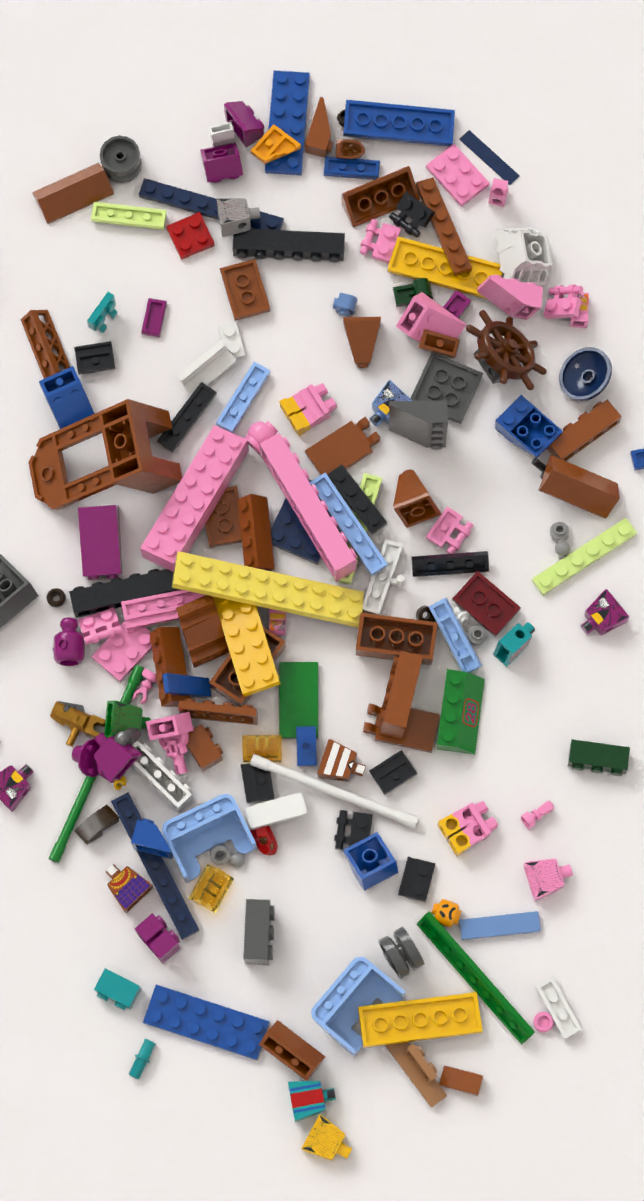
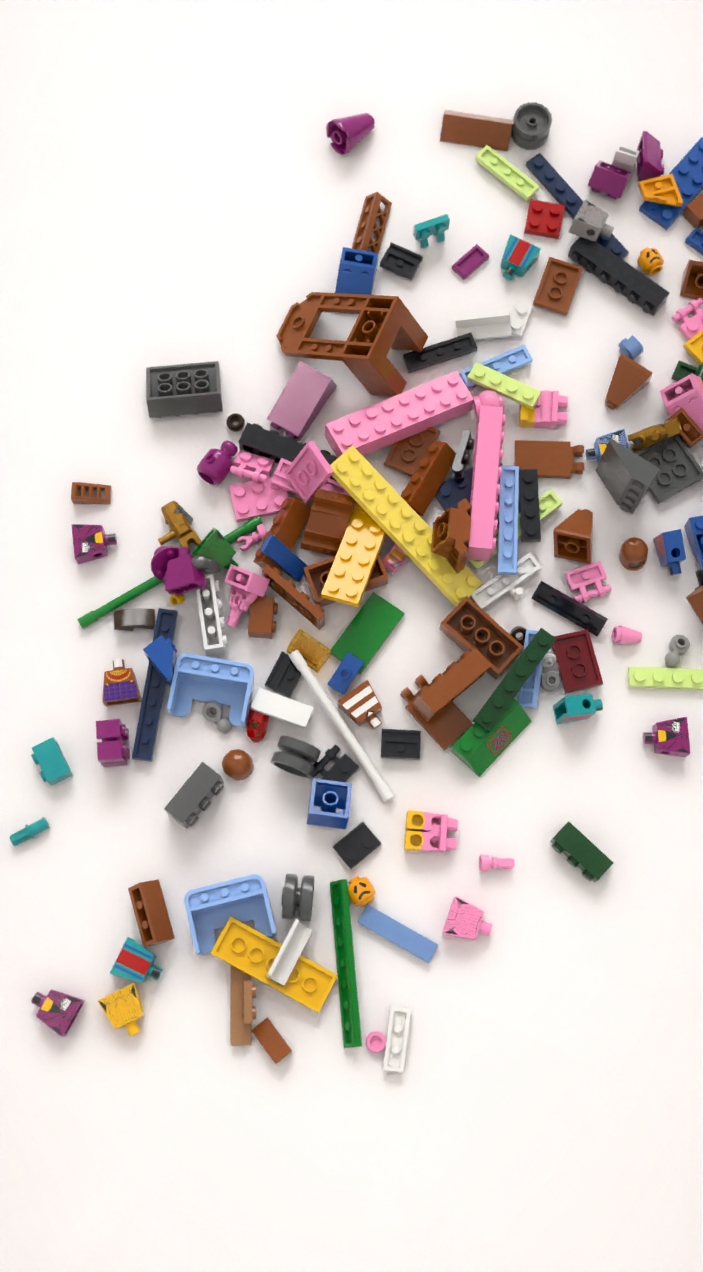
camera: 30 degrees right, 0 degrees up
(157, 599) = (308, 471): none -> bright pink plate
(193, 287) = (518, 257): none -> torso
(206, 1022) = (102, 839): blue plate -> none
(211, 888) = (185, 734): clear yellow brick -> none
(263, 410) = (504, 385): none -> yellowish green plate
(271, 495) = (462, 456): none -> plate
(272, 883) = (237, 764): none -> dark orange hair
(273, 1180) = (57, 1010): none -> torso
(308, 214) = (650, 261): none -> light orange head
(314, 569) = (452, 535): none -> dark orange slope
(316, 842) = (295, 756): none -> dark grey wheel
(417, 367) = (654, 434): none -> pearl gold piece
(426, 1001) = (289, 953): none -> white panel
(449, 655) = (514, 680): none -> dark green plate
(469, 480) = (633, 551): none -> dark orange helmet
(492, 457) = (670, 550): none -> blue torso
(511, 554) = (625, 635): none -> bright pink cone

